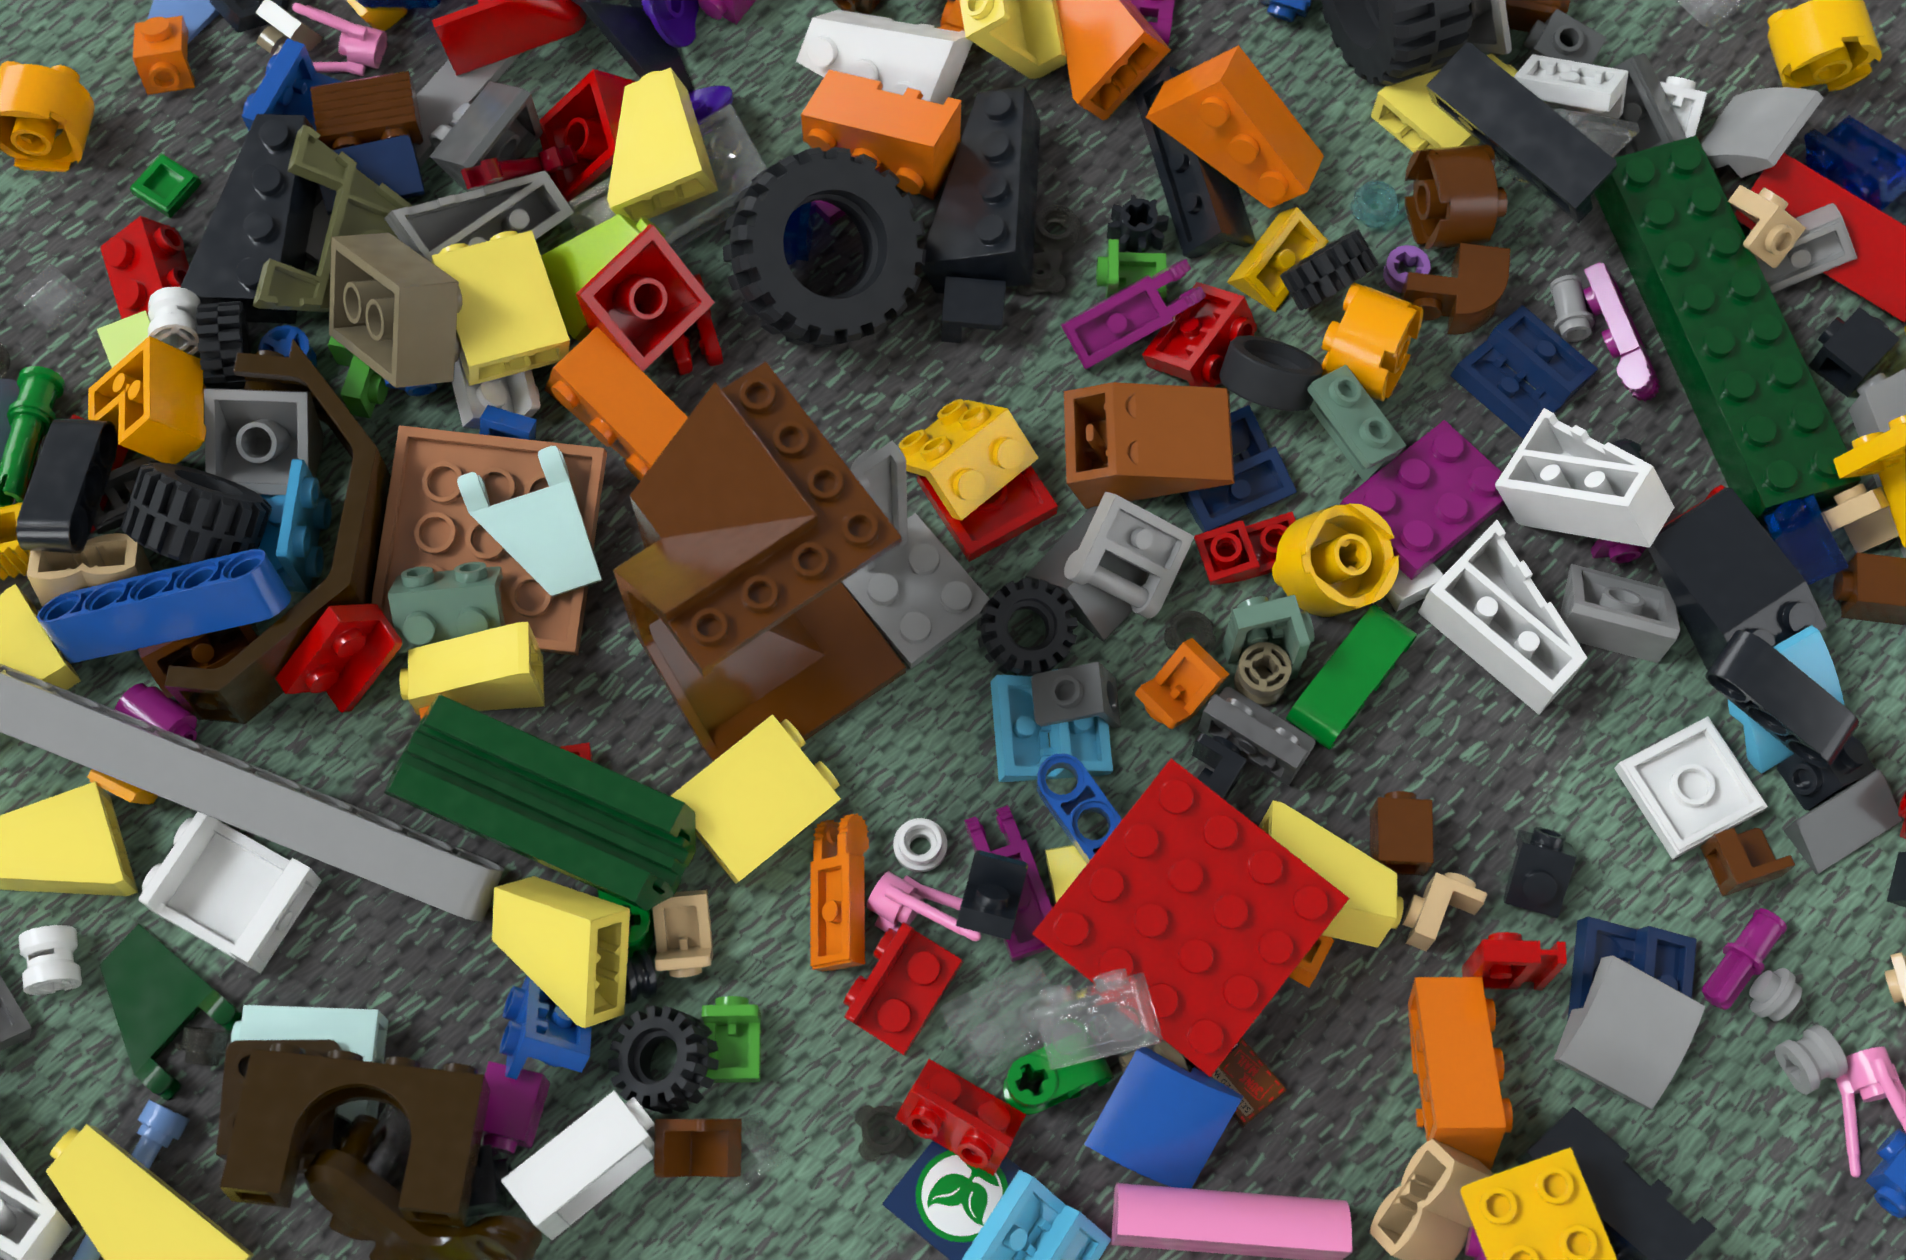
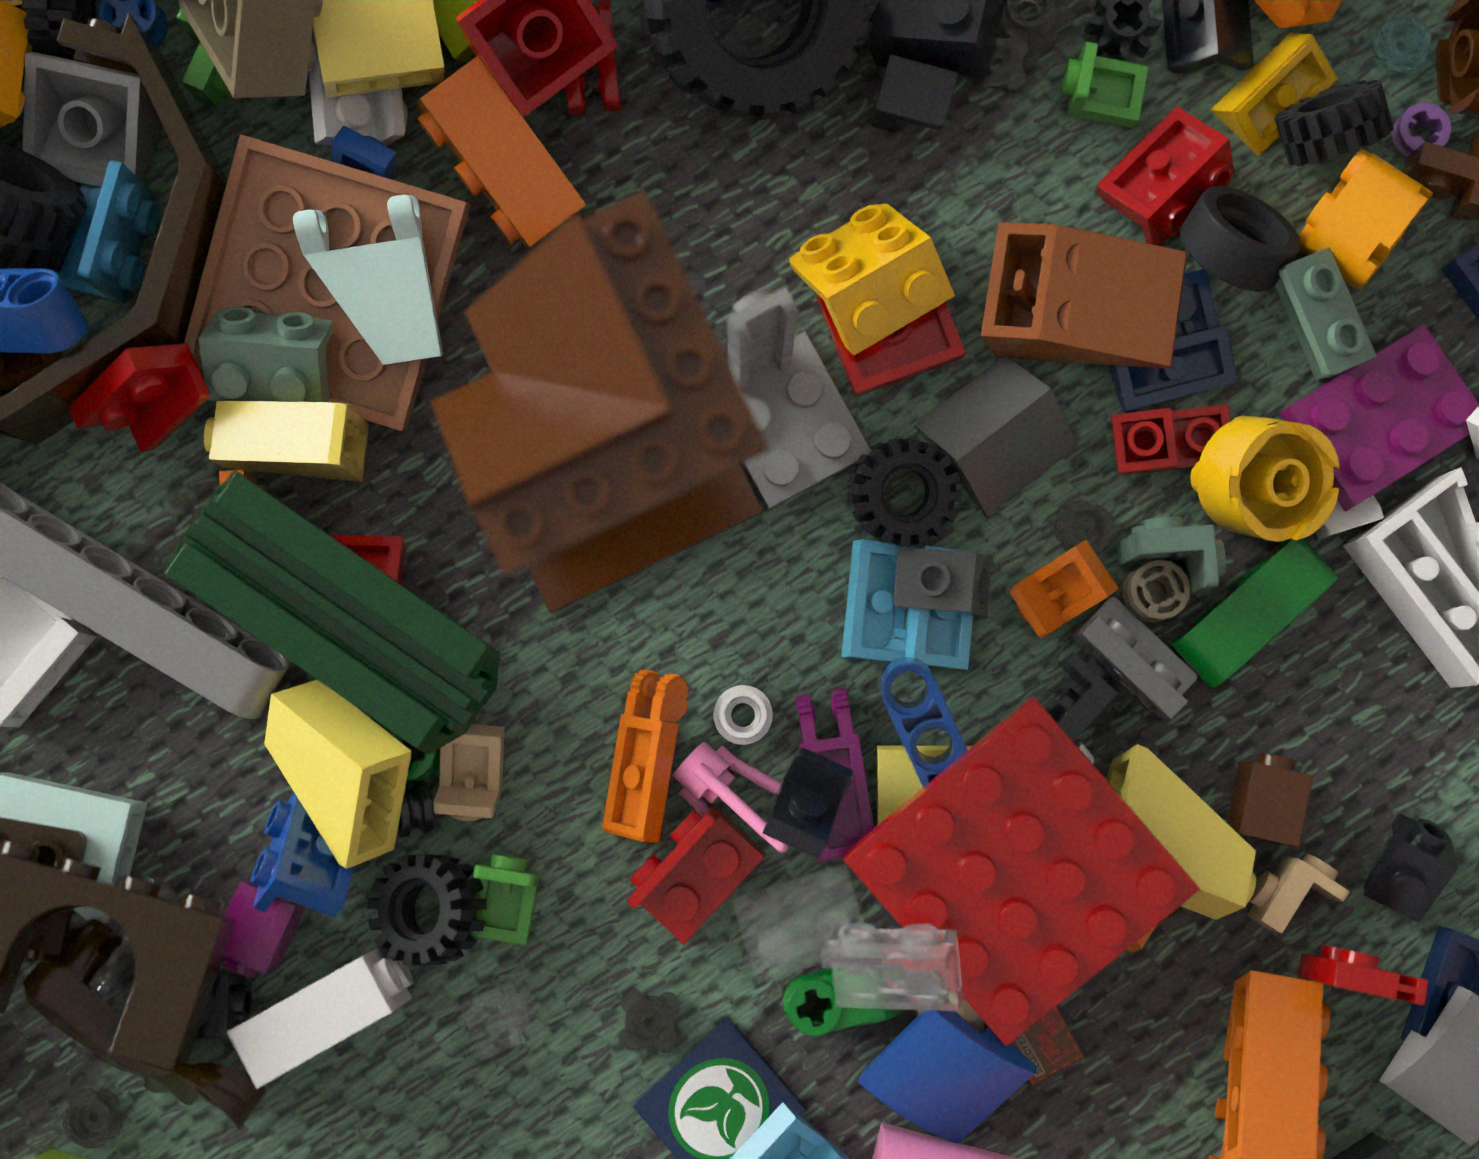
camera: 10 degrees right, 15 degrees up
(698, 1147) = (449, 1006): reddish brown panel -> none
(757, 797) = (572, 637): light yellow brick -> none
(960, 1117) = (732, 1027): red bracket -> none
(1128, 315) = (1092, 136): magenta hinge -> none
(1137, 539) = (1044, 416): light grey plate -> none

